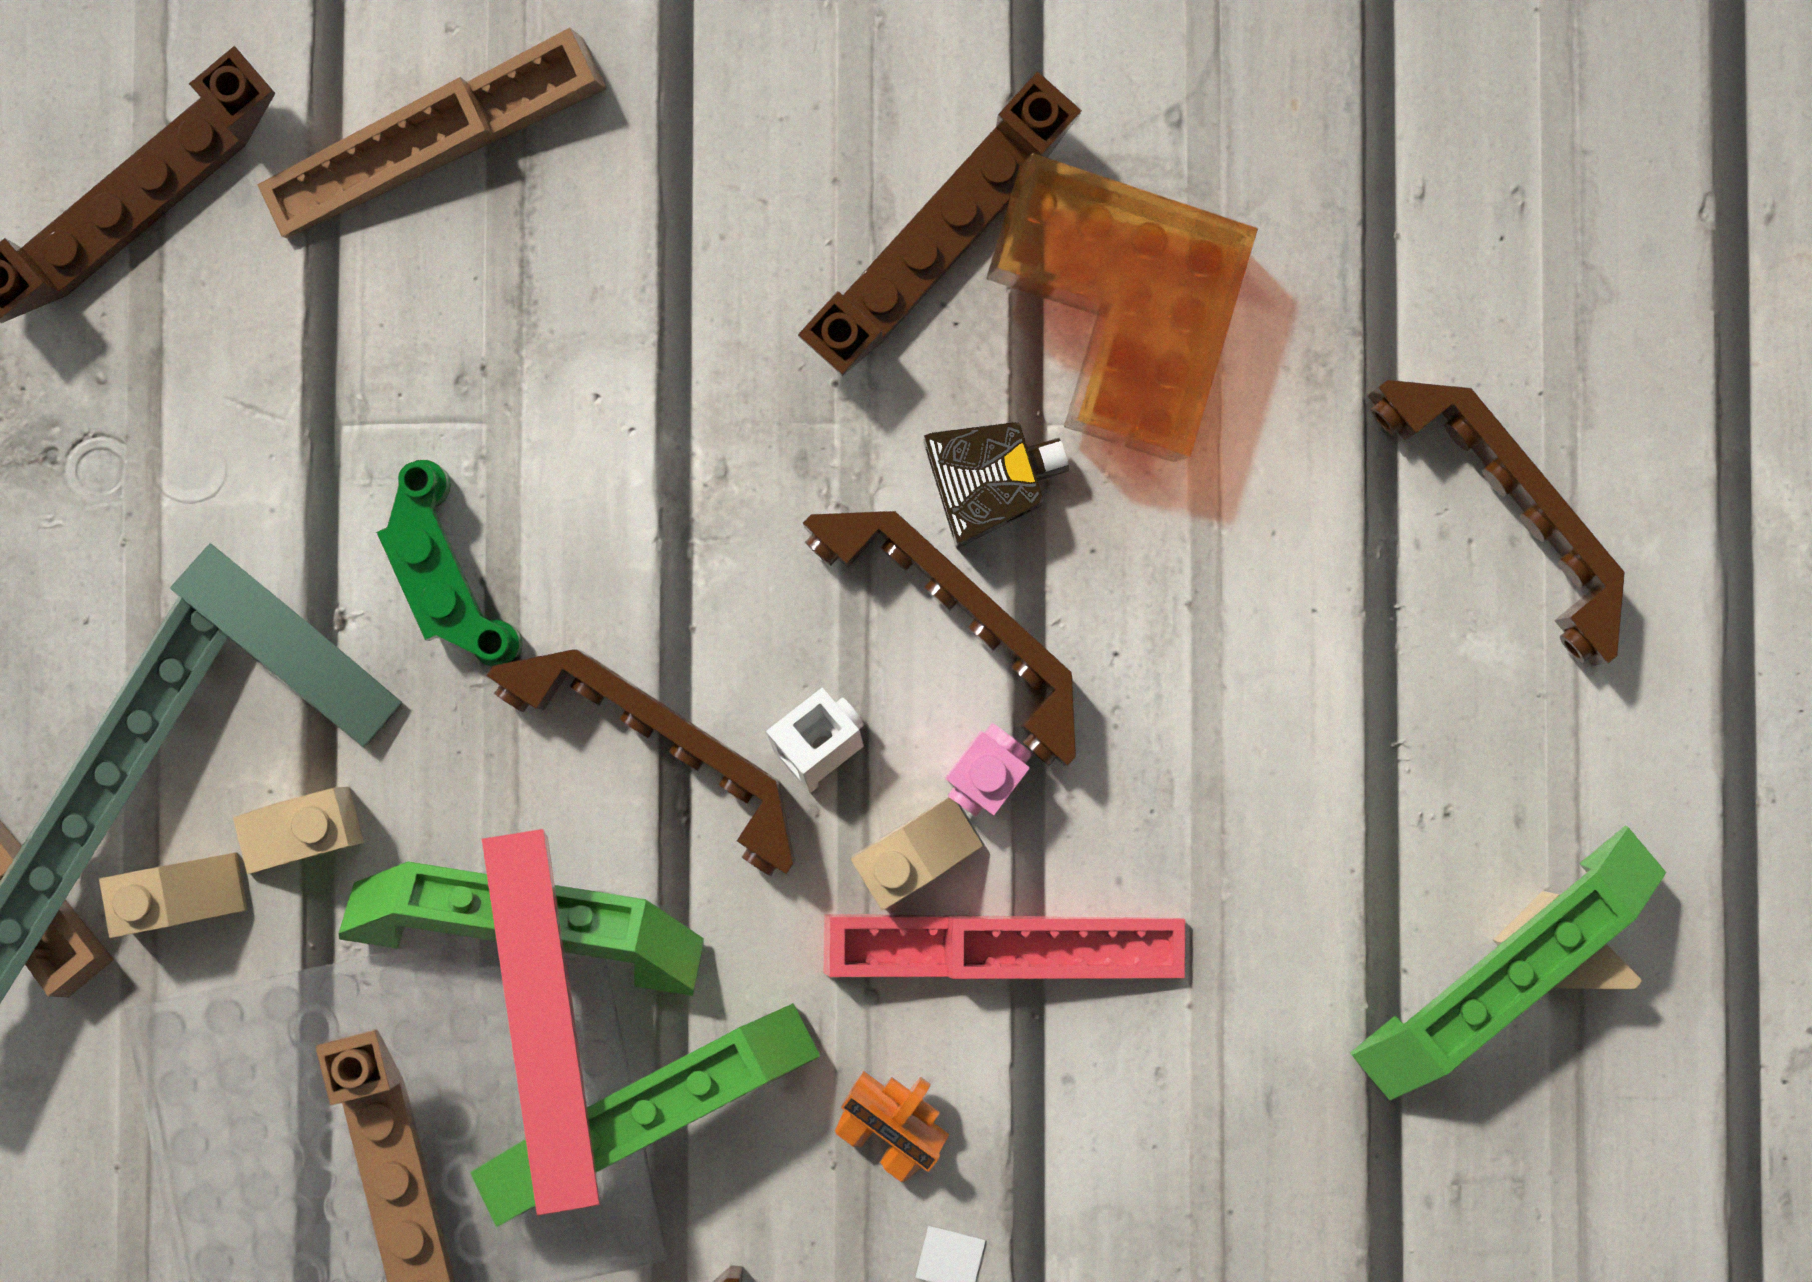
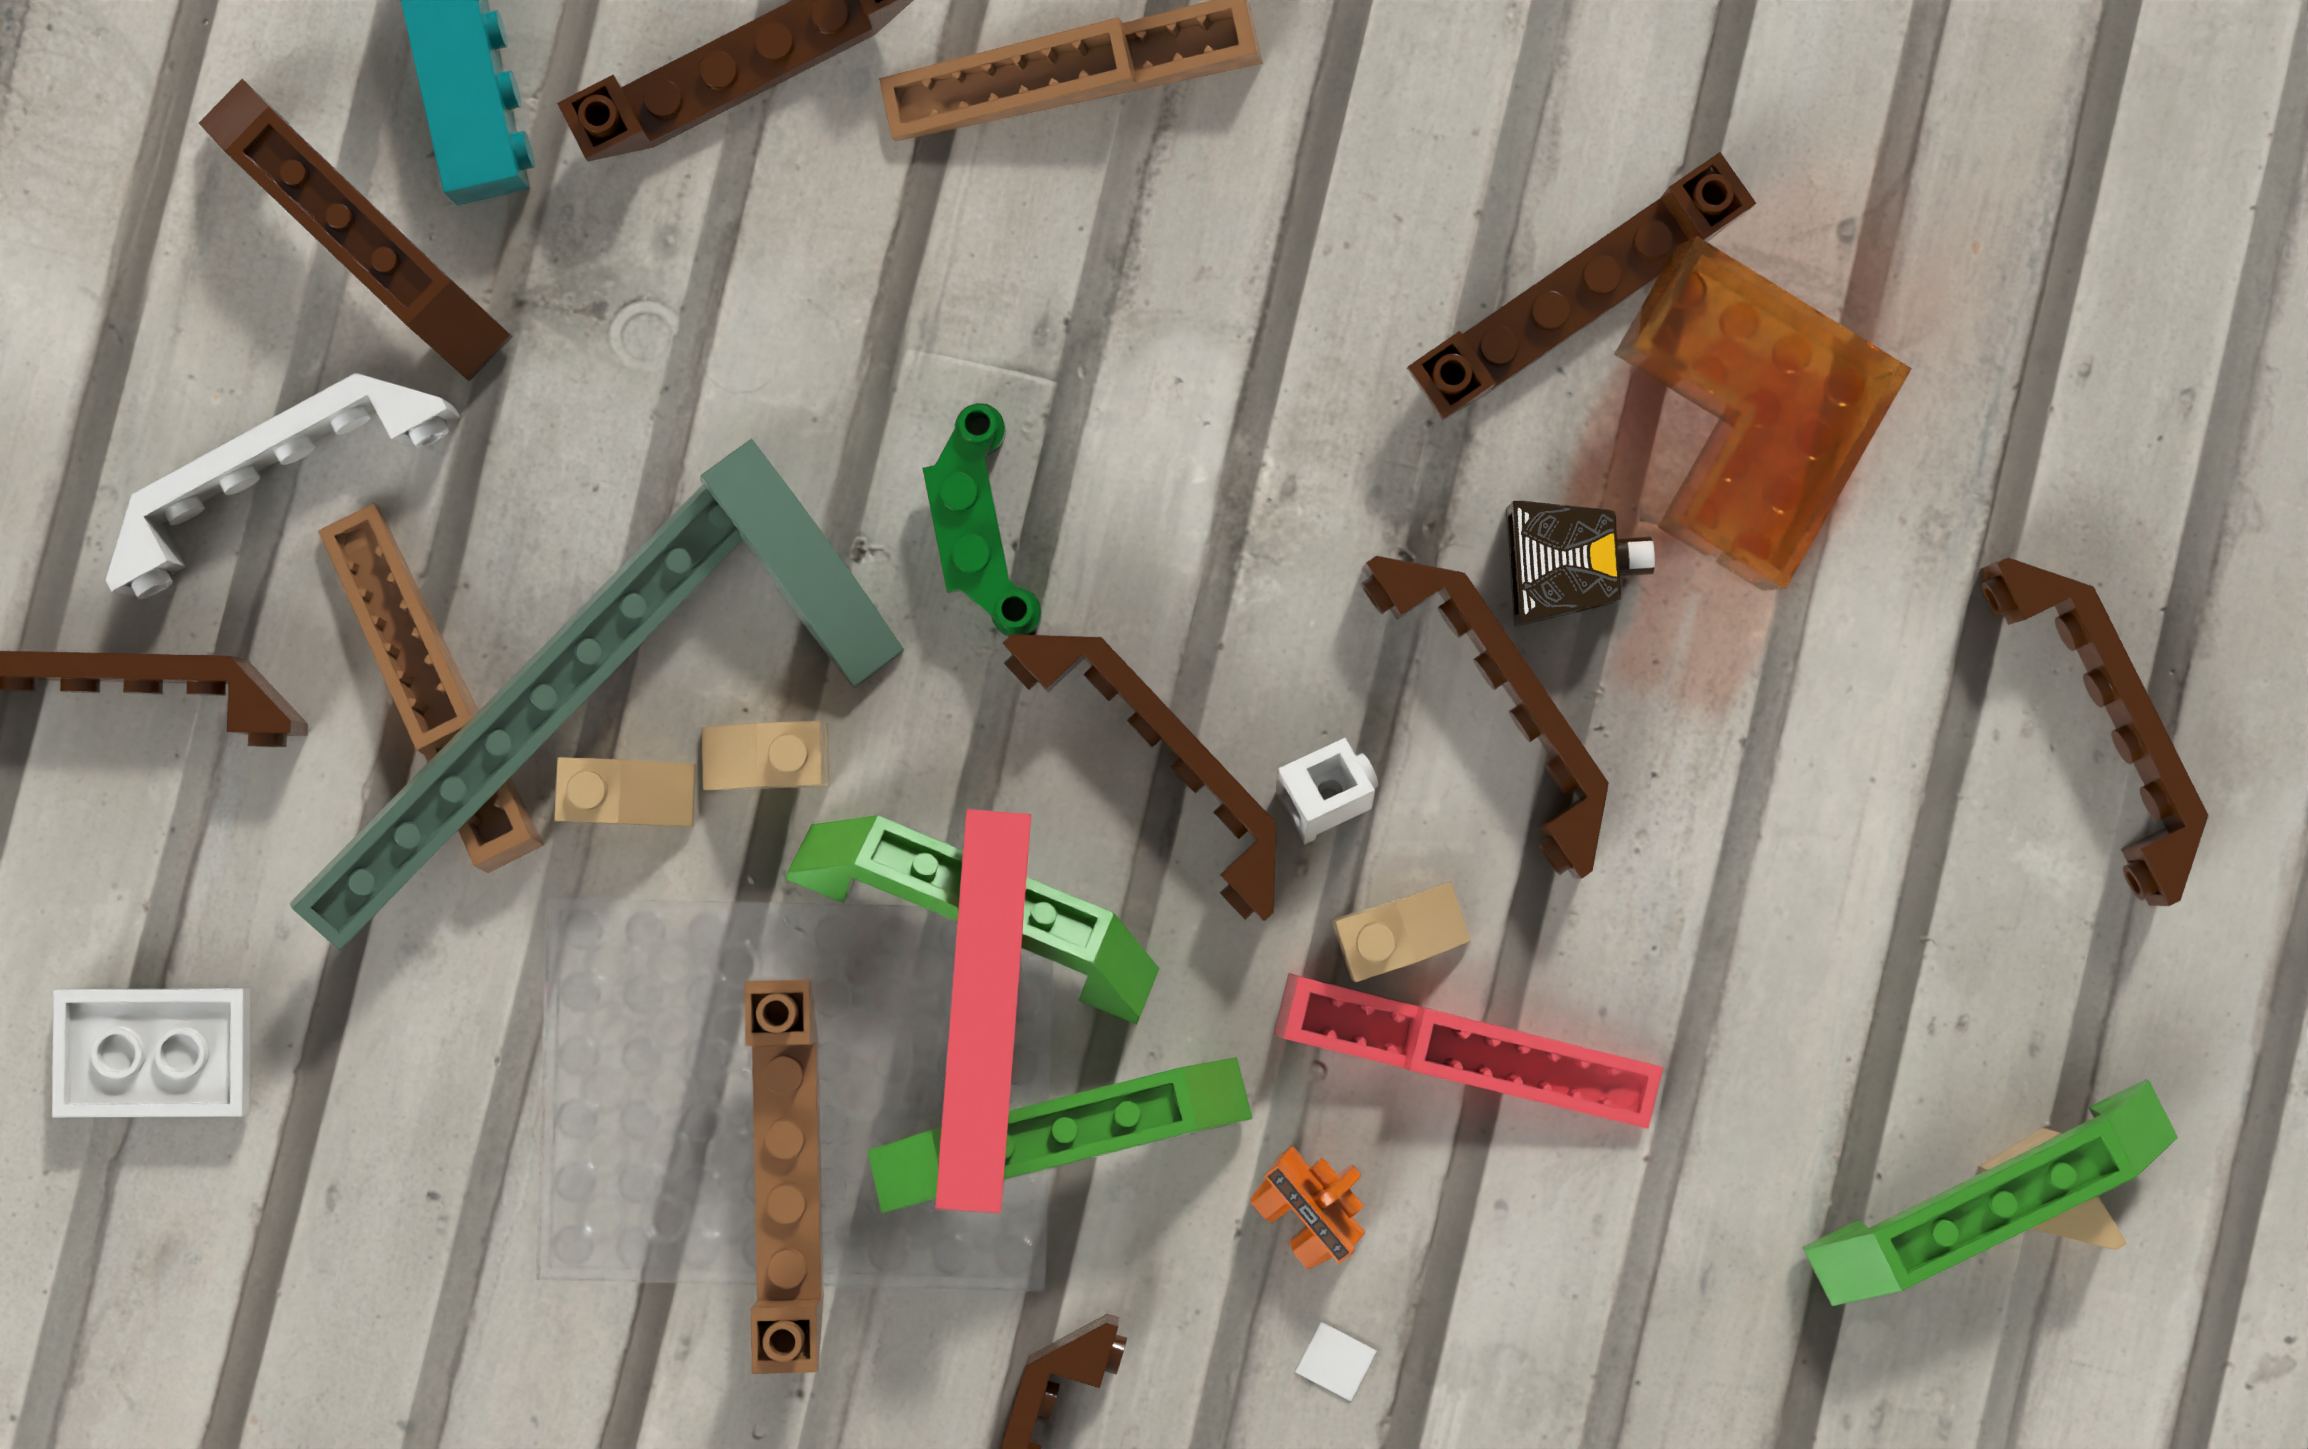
camera: 20 degrees right, 0 degrees up
(988, 771) = (1496, 865): bright pink brick -> none

